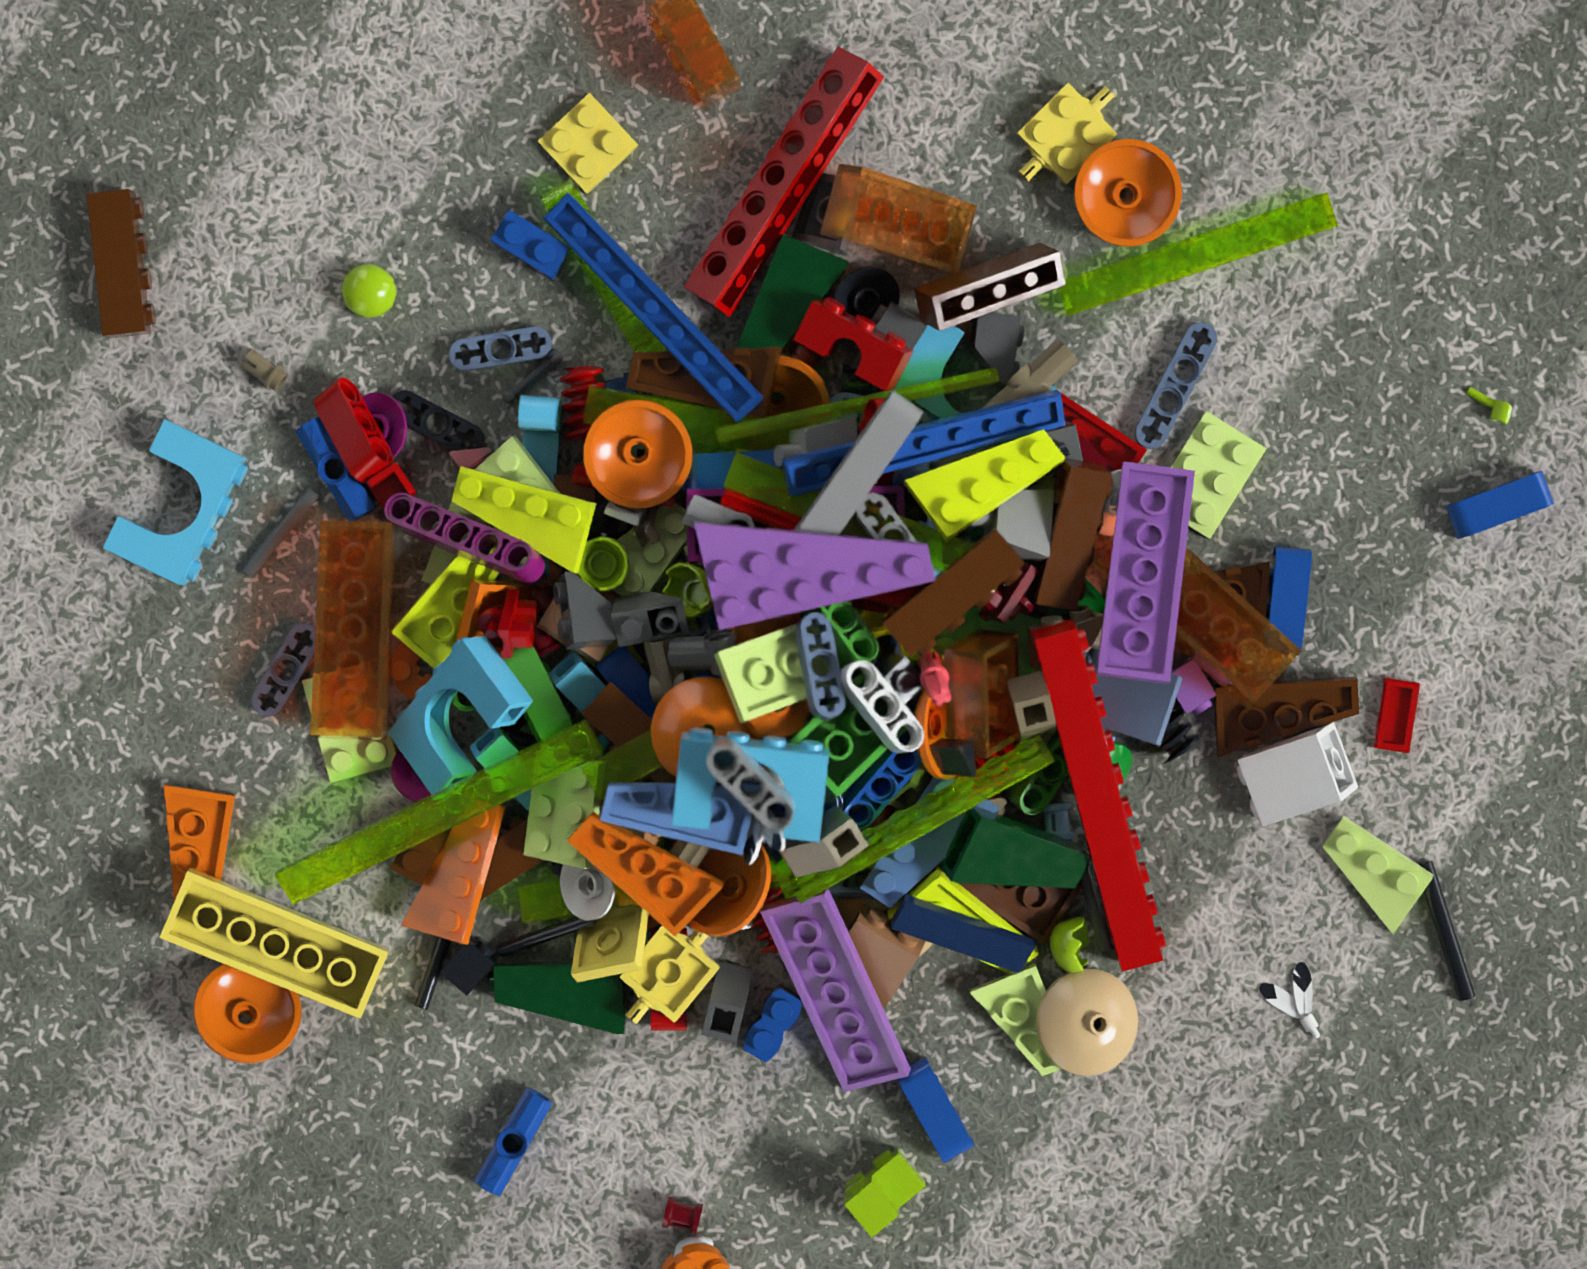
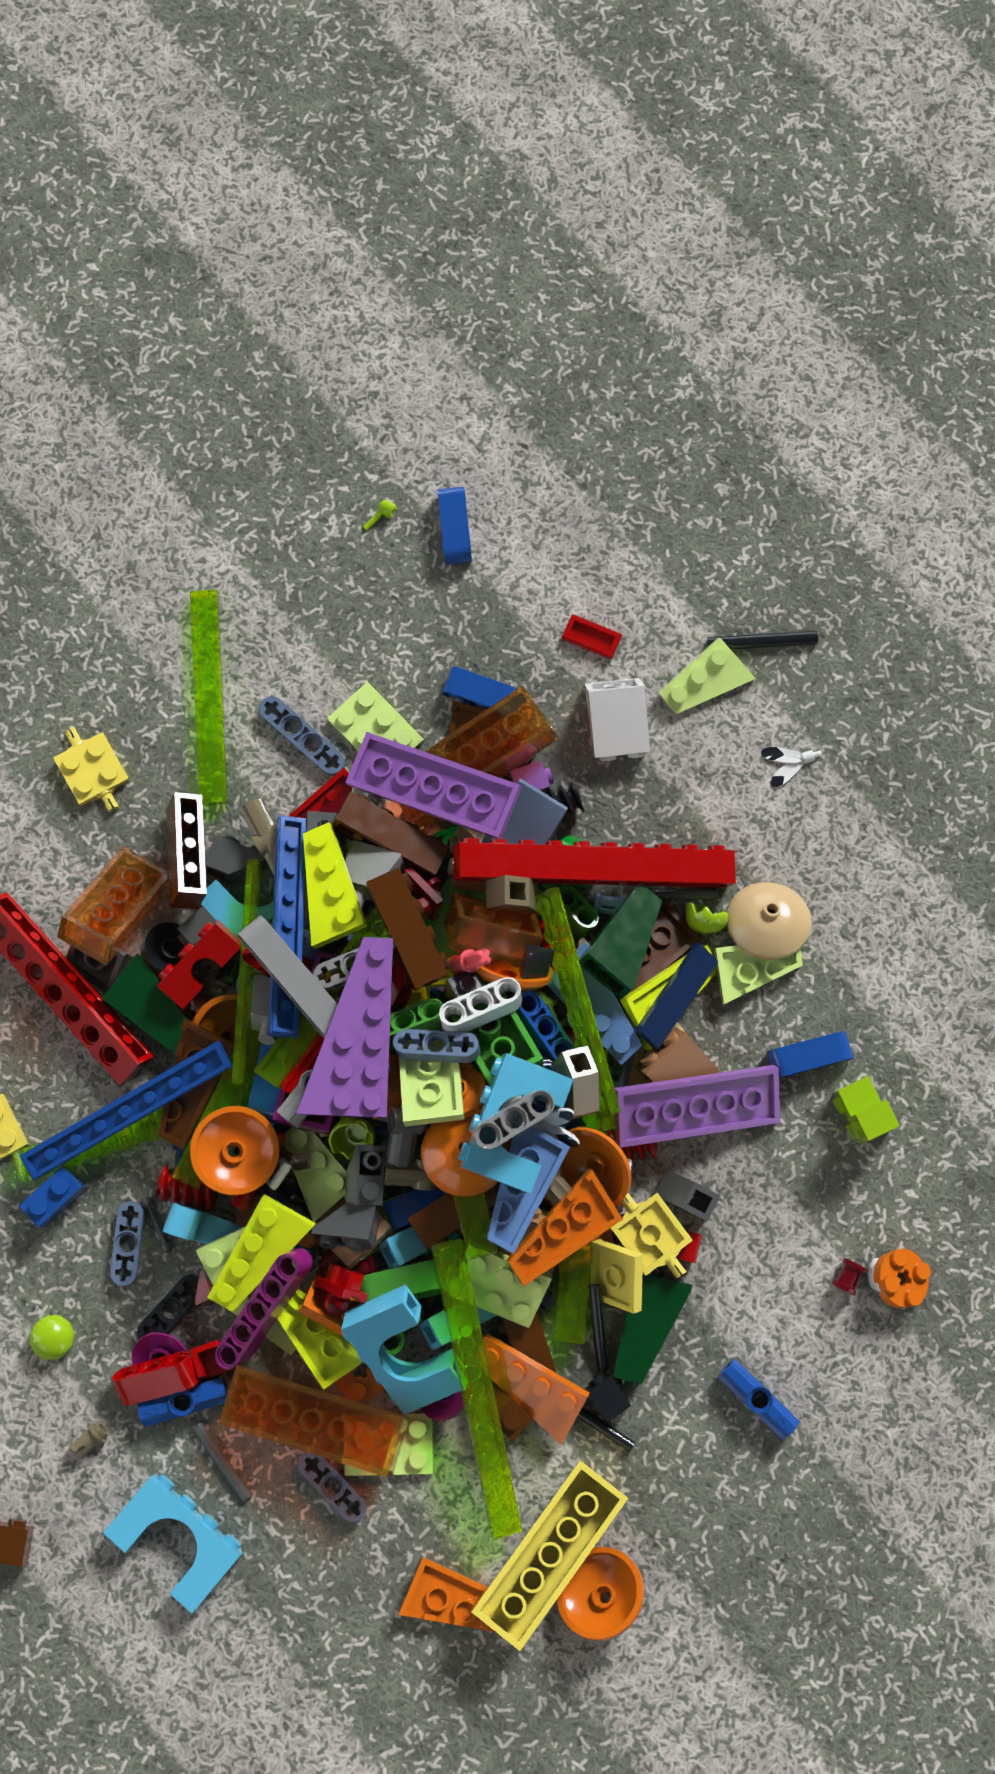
camera: 70 degrees left, 10 degrees down
(586, 892) = (570, 1283): white dish -> none
(604, 563) = (314, 1200): lime hair -> none
(777, 1016) = (718, 1170): blue brick -> none
(1144, 172) = (137, 718): orange dish -> none
(1282, 711) = (567, 718): reddish brown wing -> none

